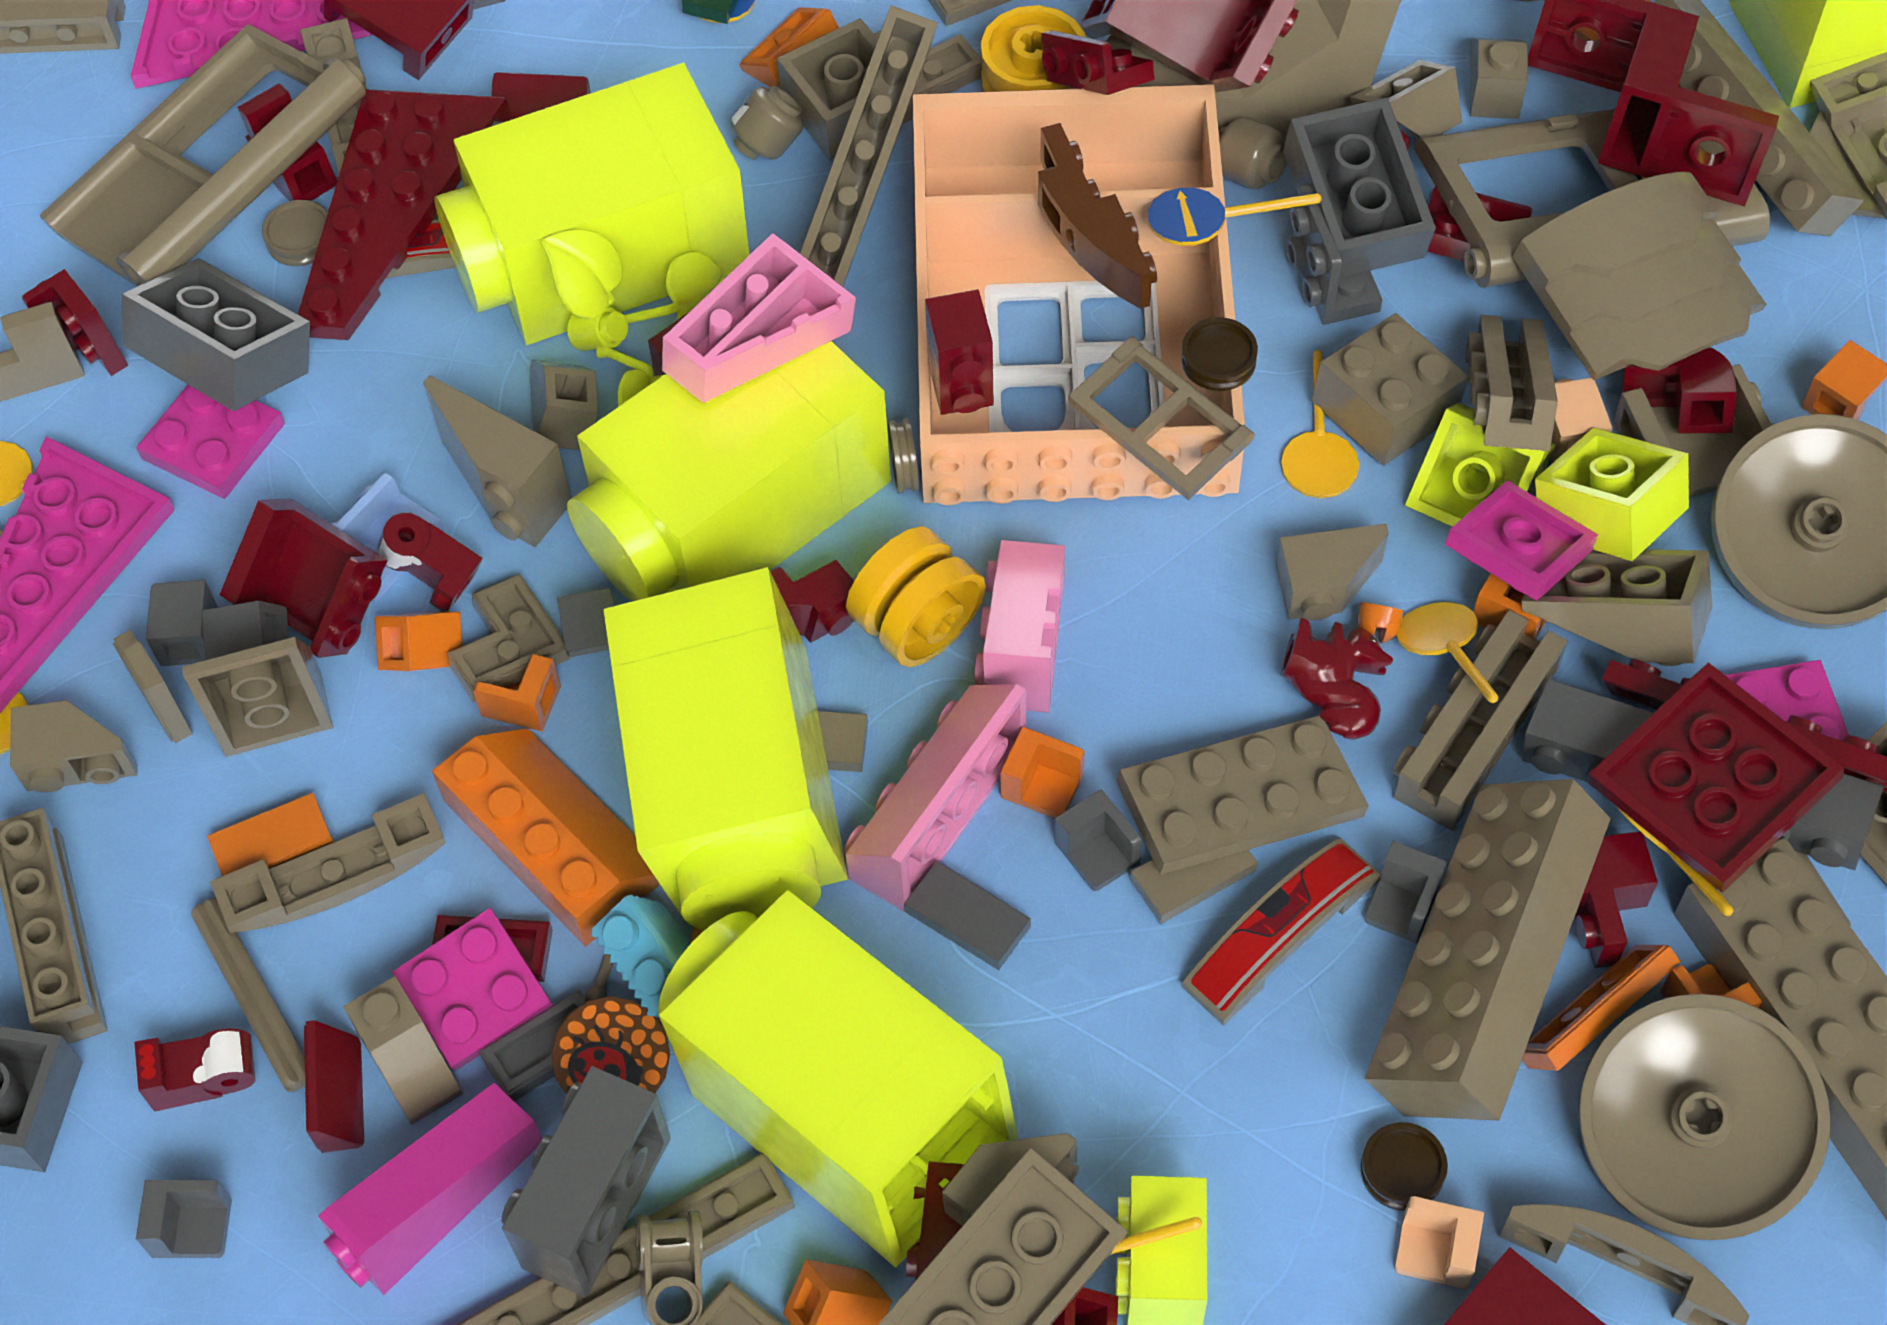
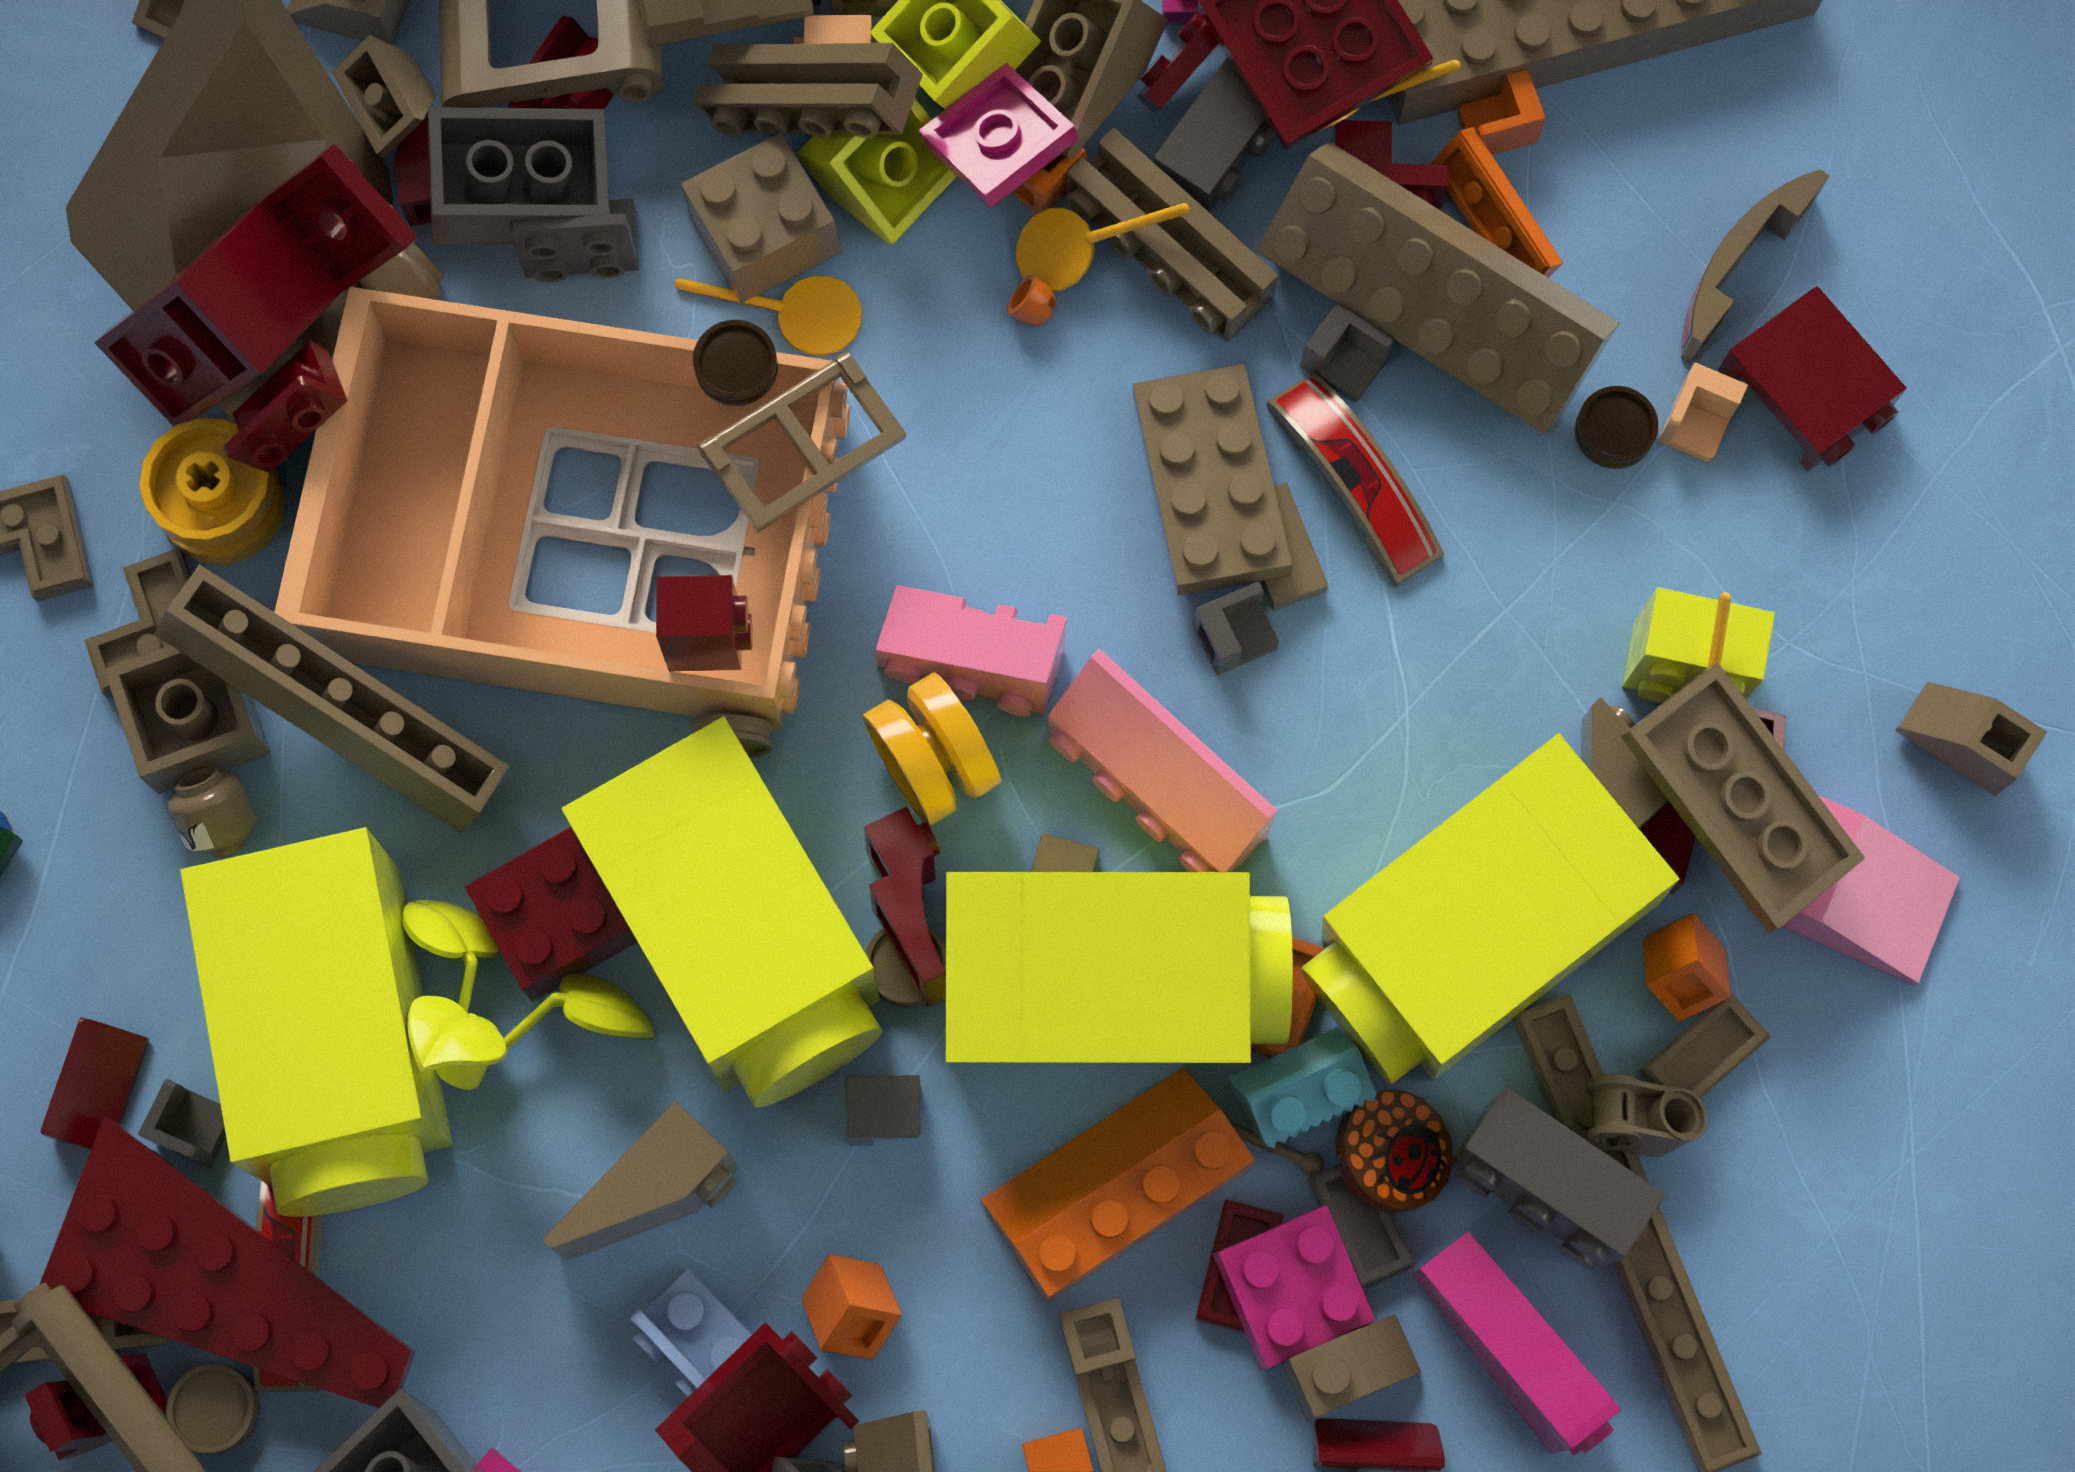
camera: 85 degrees left, 15 degrees up
(430, 556) = (751, 1276): dark red leg -> none
(517, 632) = (870, 1190): dark tan tile -> none
(525, 702) = (938, 1201): orange panel -> none
(562, 401) = (561, 1103): dark tan slope -> none
(755, 321) = (622, 832): bright pink wedge -> none
(797, 30) = (81, 769): orange slope -> none
(967, 915) = (1297, 767): dark grey tile -> none
(1042, 773) = (1153, 662): orange panel -> none
(1090, 226) = (553, 452): reddish brown slope -> none
(1197, 216) = (537, 350): blue piece -> none
(1325, 674) = (1085, 368): dark red animal -> none
(1327, 568) = (969, 337): dark tan slope -> none
(1704, 1117) = (1626, 153): dark tan dish -> none

